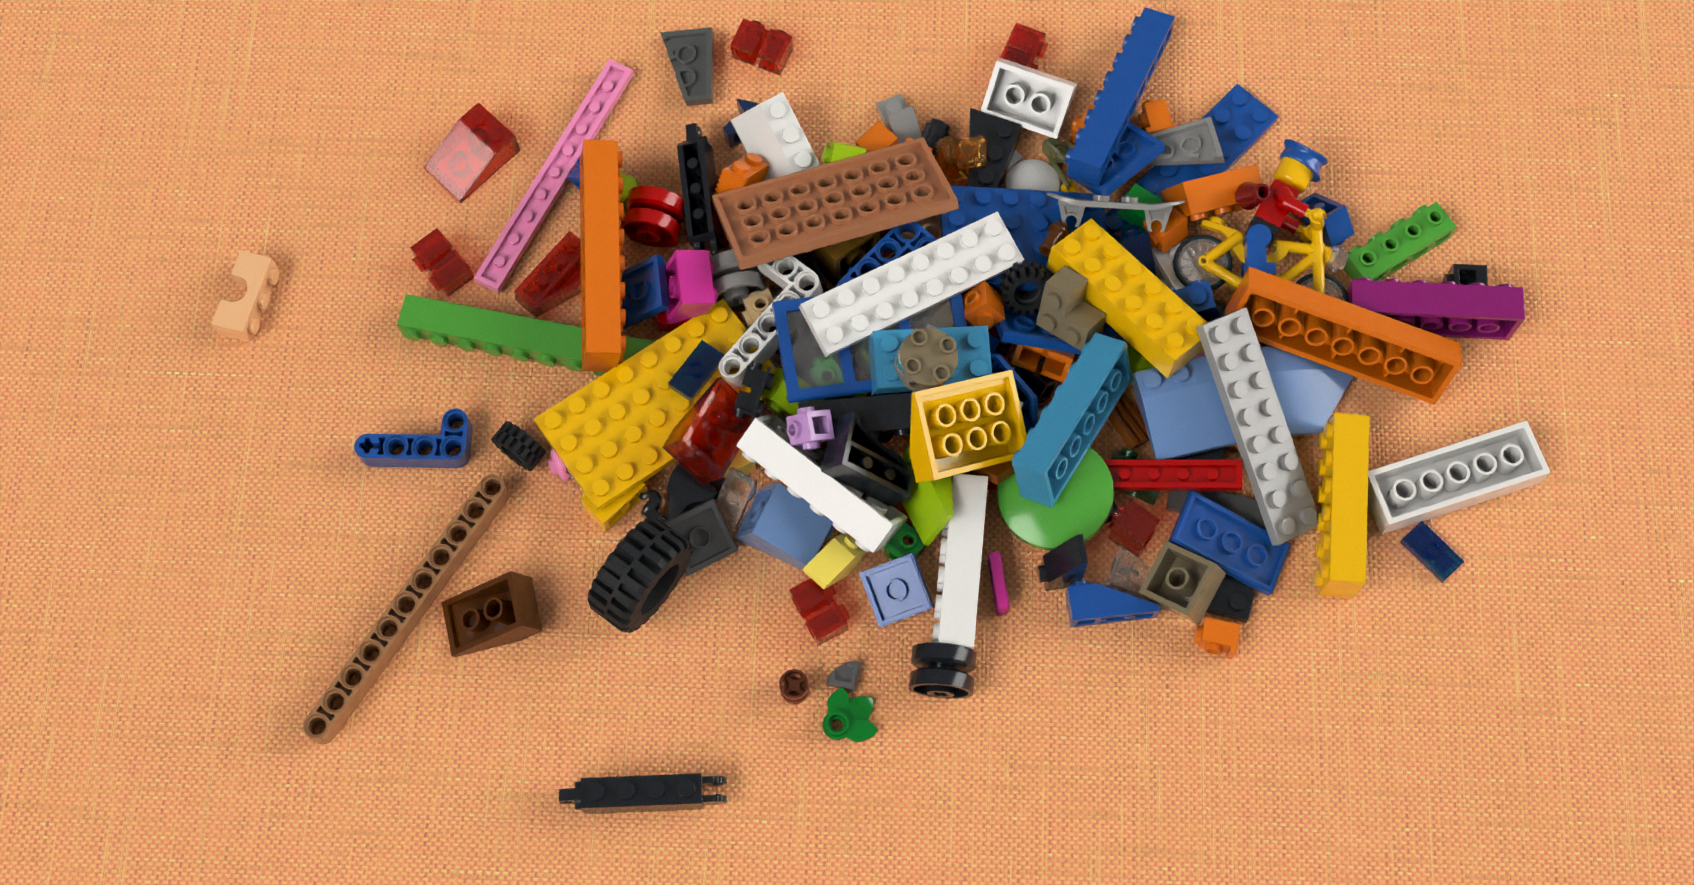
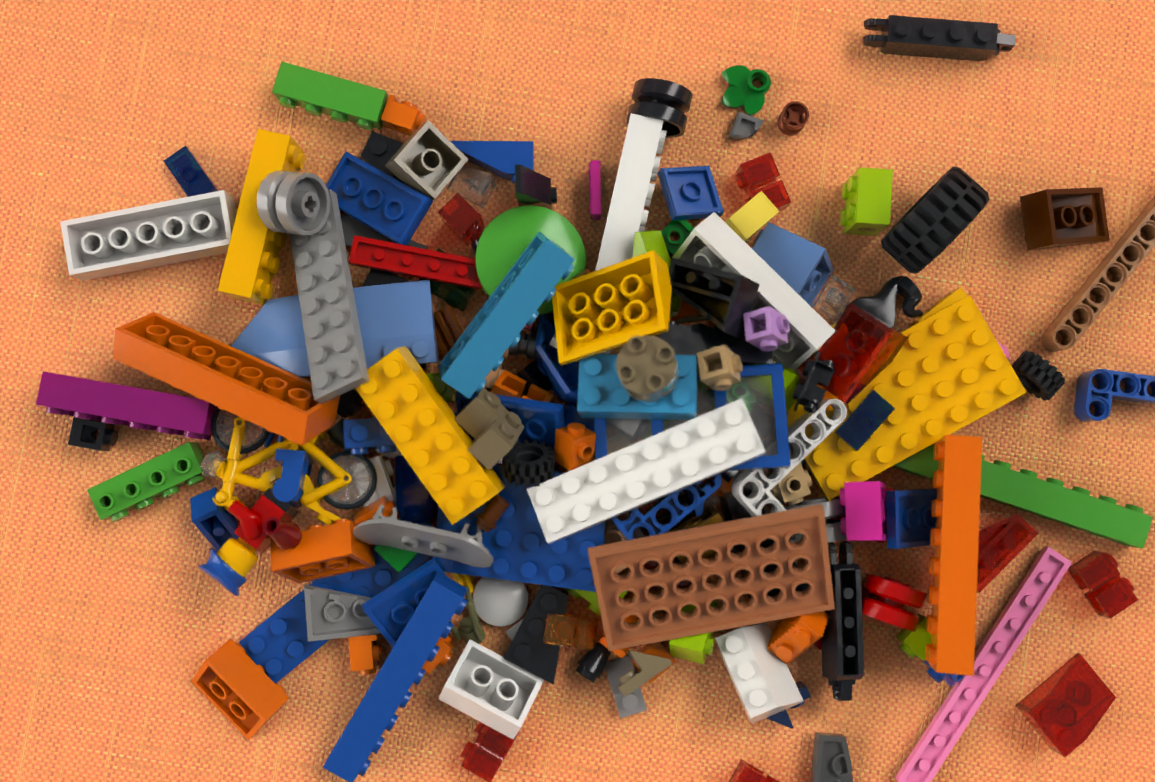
camera: 175 degrees left, 15 degrees up
(707, 534) = (867, 268): dark grey tile -> none
(707, 598) = (867, 202): none -> lime brick
(853, 381) = (719, 367): none -> tan brick
(882, 129) = (649, 668): none -> dark tan slope
(1266, 76) = (239, 688): none -> orange slope
(1299, 646) = (330, 96): none -> bright green brick
(1310, 508) = (293, 202): none -> light grey wheel

